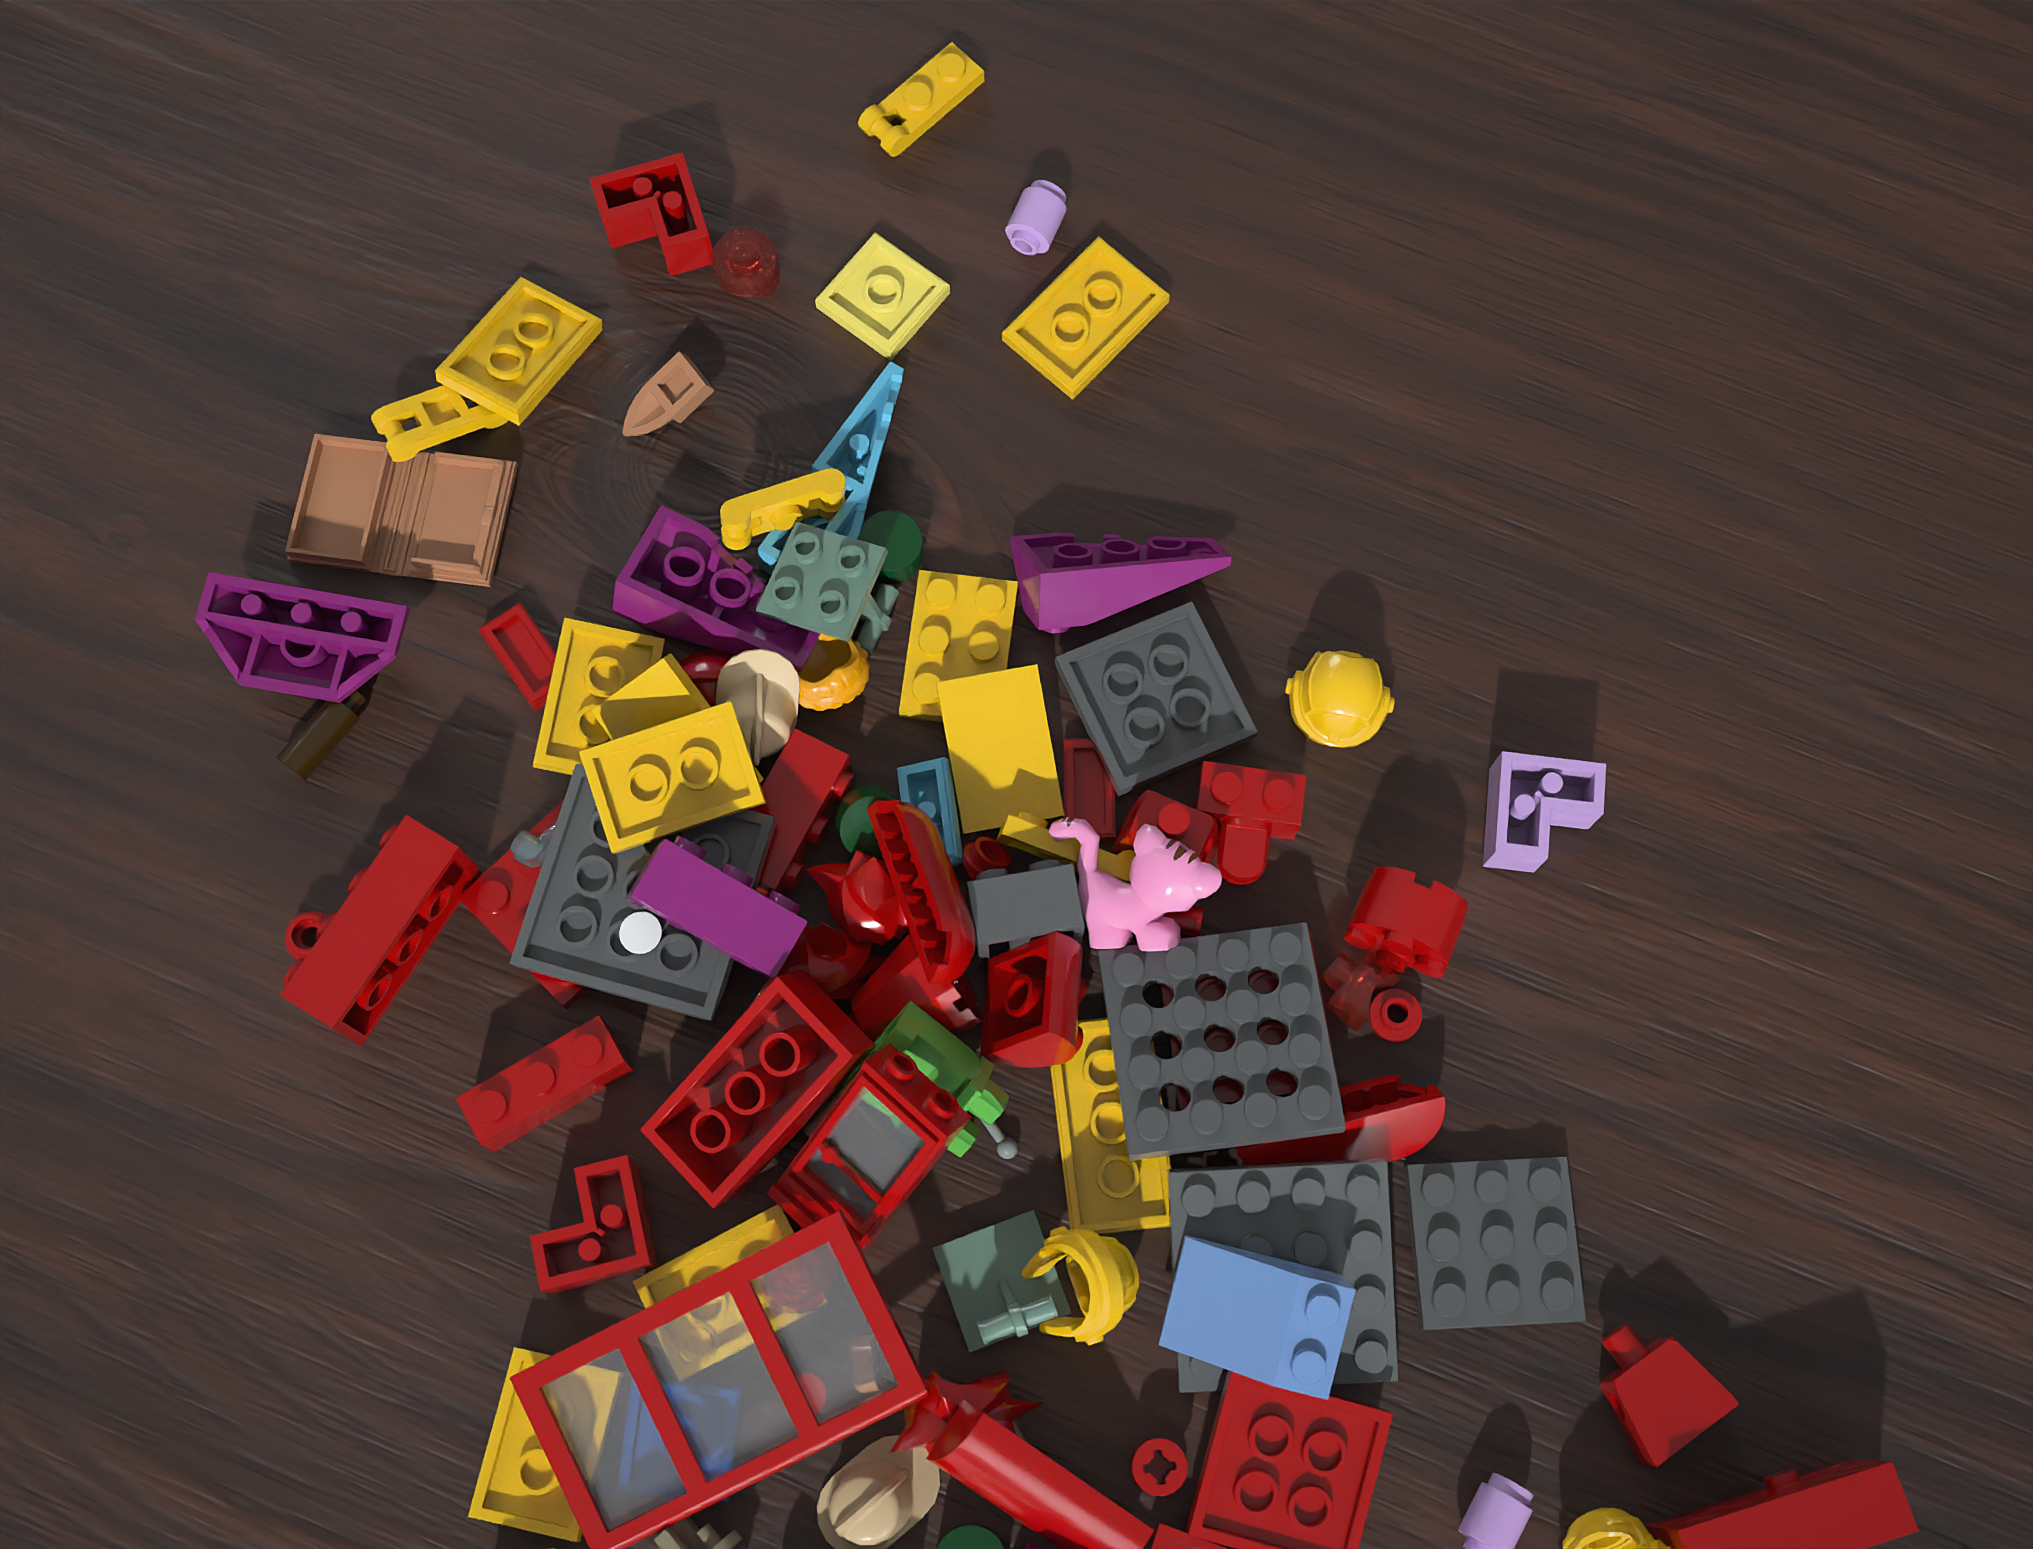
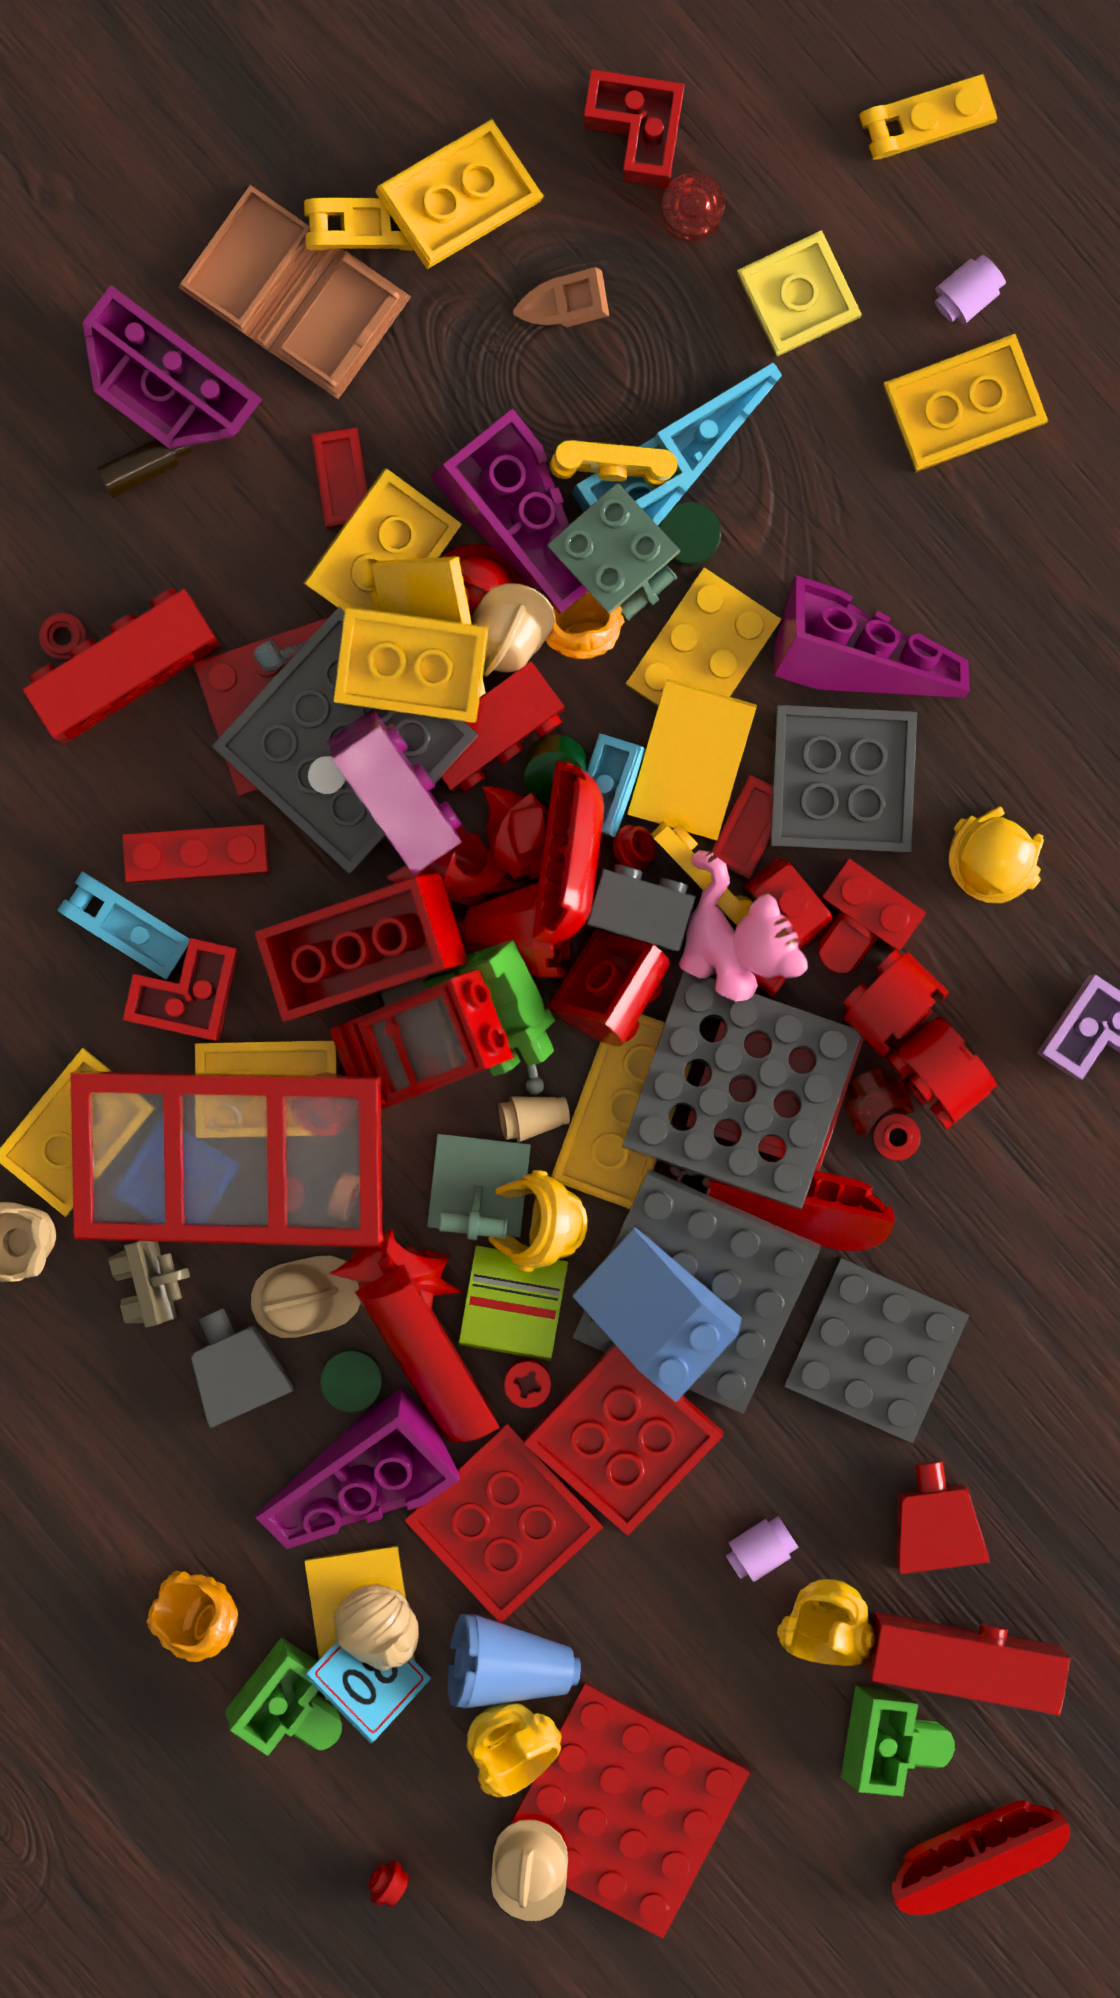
camera: 25 degrees right, 15 degrees up
(505, 1196) = (126, 926): none -> medium azure plate
(1019, 1180) = (532, 1116): none -> tan cone
(1100, 1391) = (512, 1307): none -> lime slope
(1322, 880) = (893, 1003): none -> red brick

